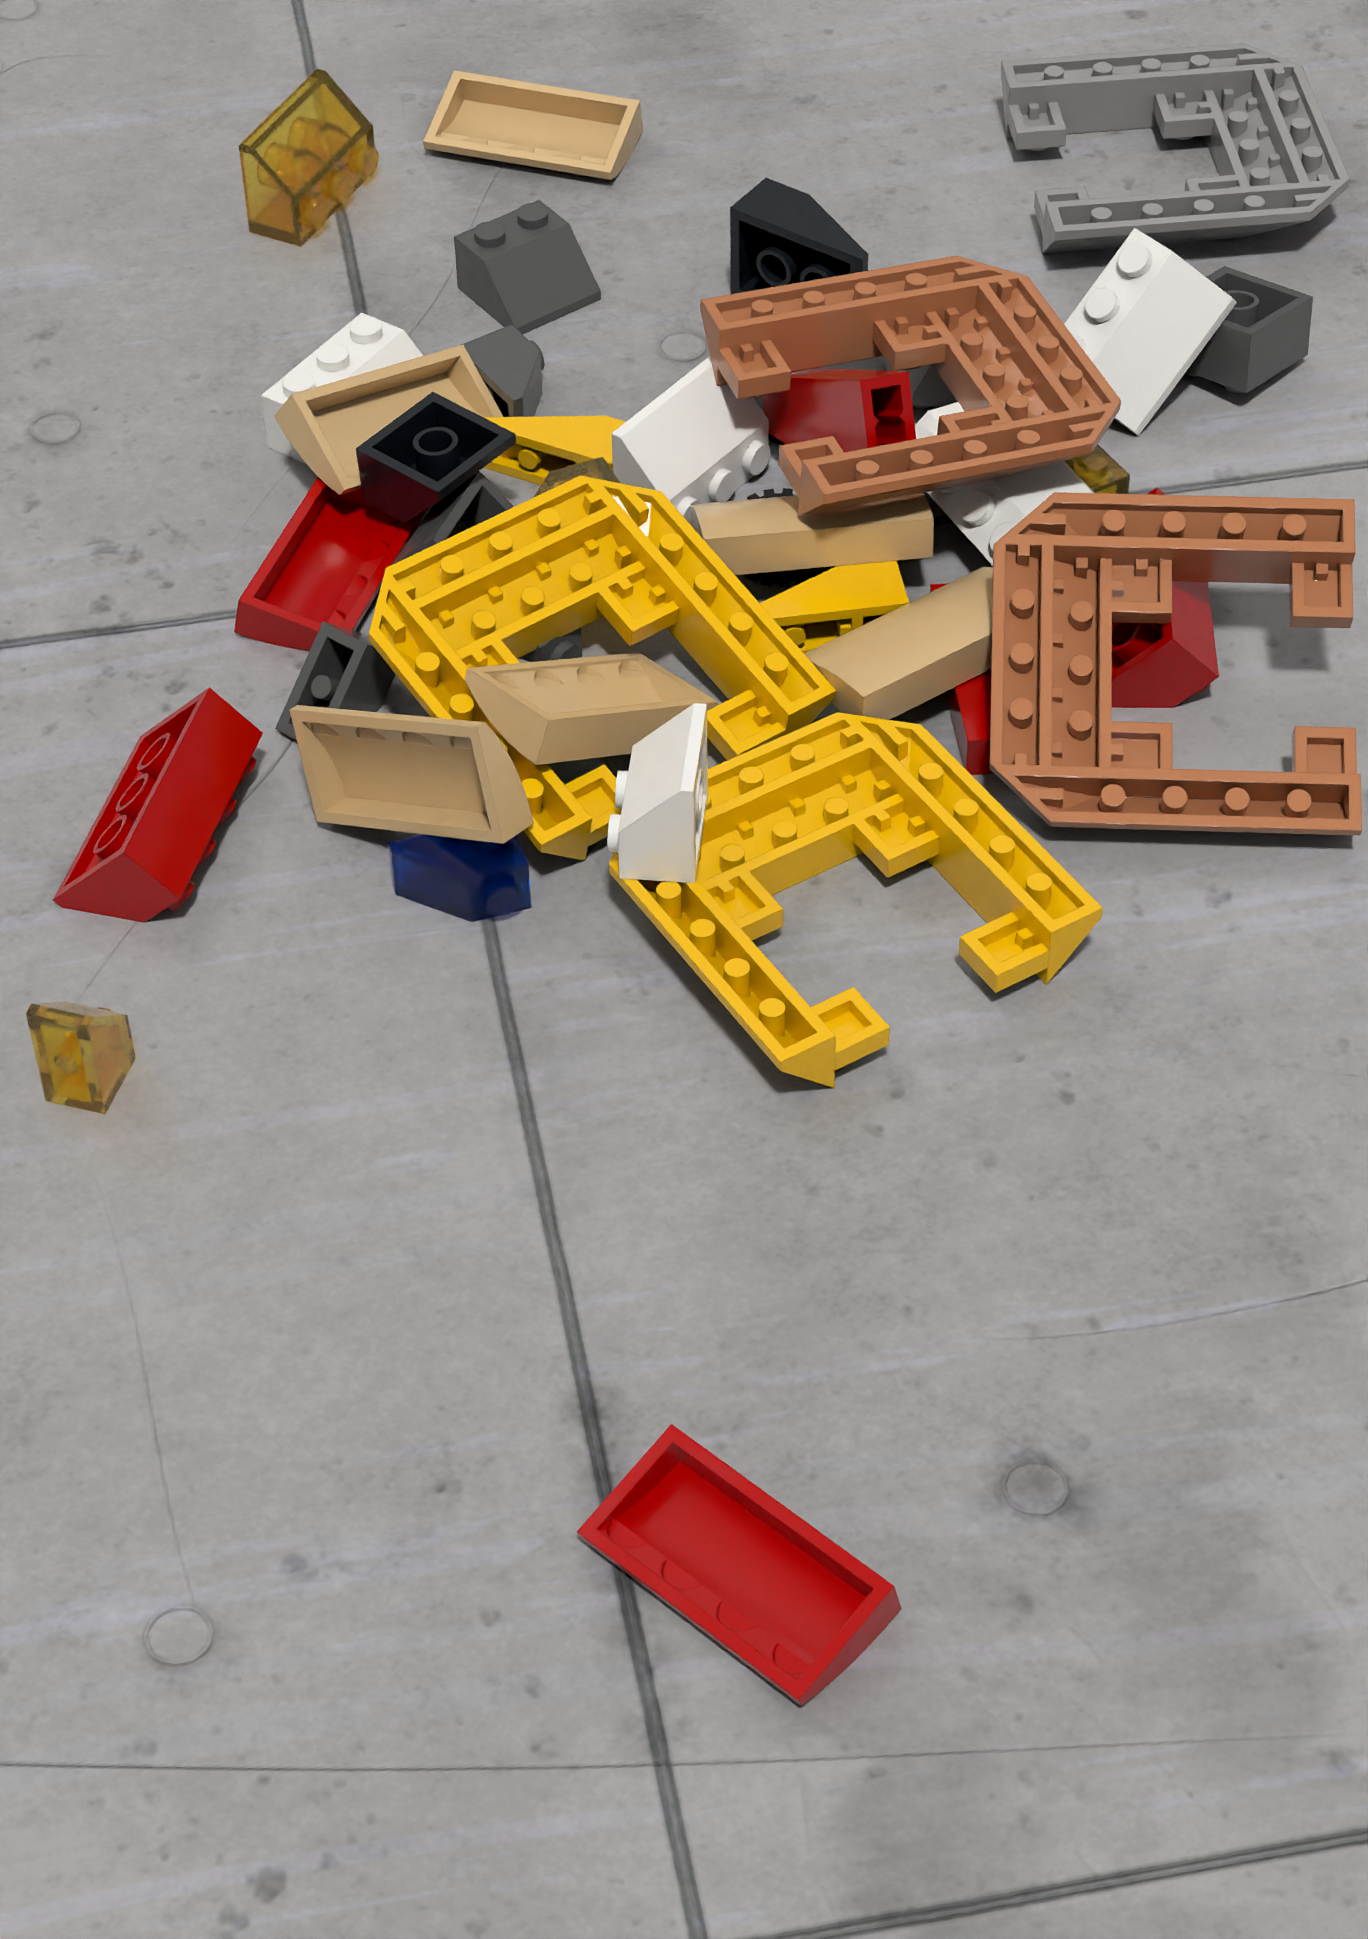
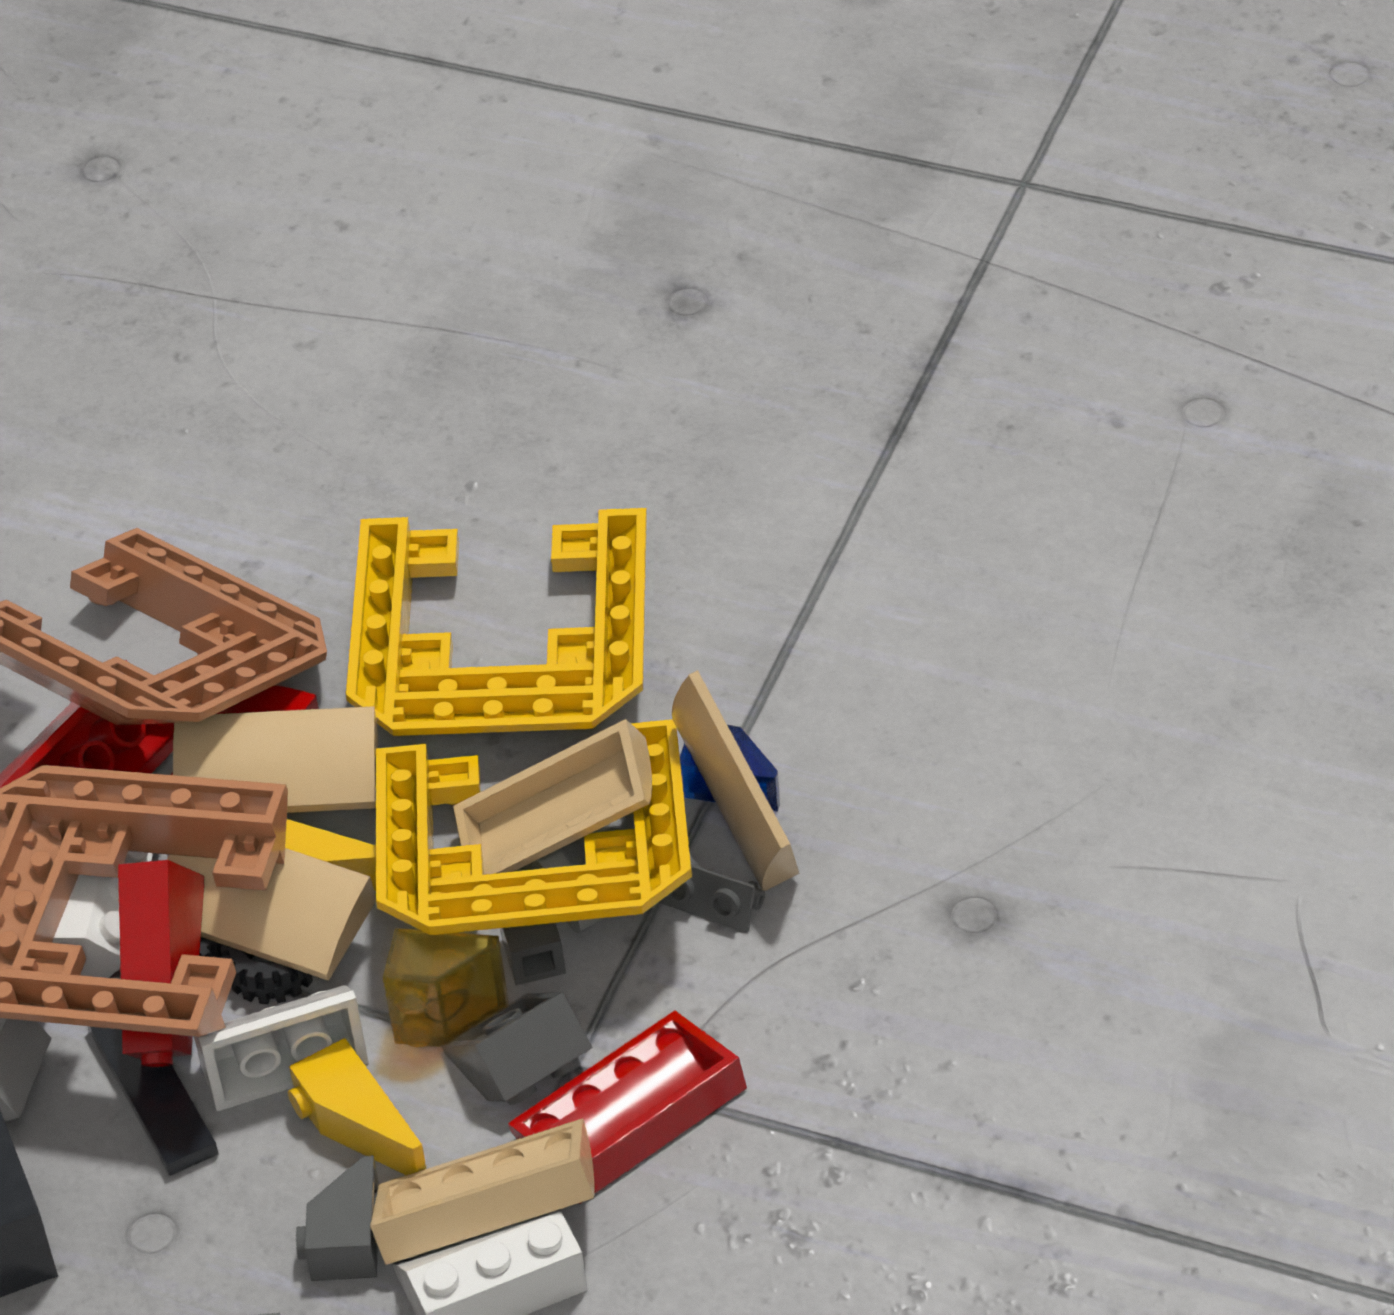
camera: 145 degrees left, 0 degrees up
(80, 1053) = (1077, 725): clear yellow slope -> none
(162, 813) = (914, 913): red slope -> none
(339, 674) = (707, 961): dark grey slope -> none
(426, 455) = (500, 1078): slope -> none
(663, 802) = (583, 655): white slope -> none
(741, 1566) = (879, 312): red slope -> none

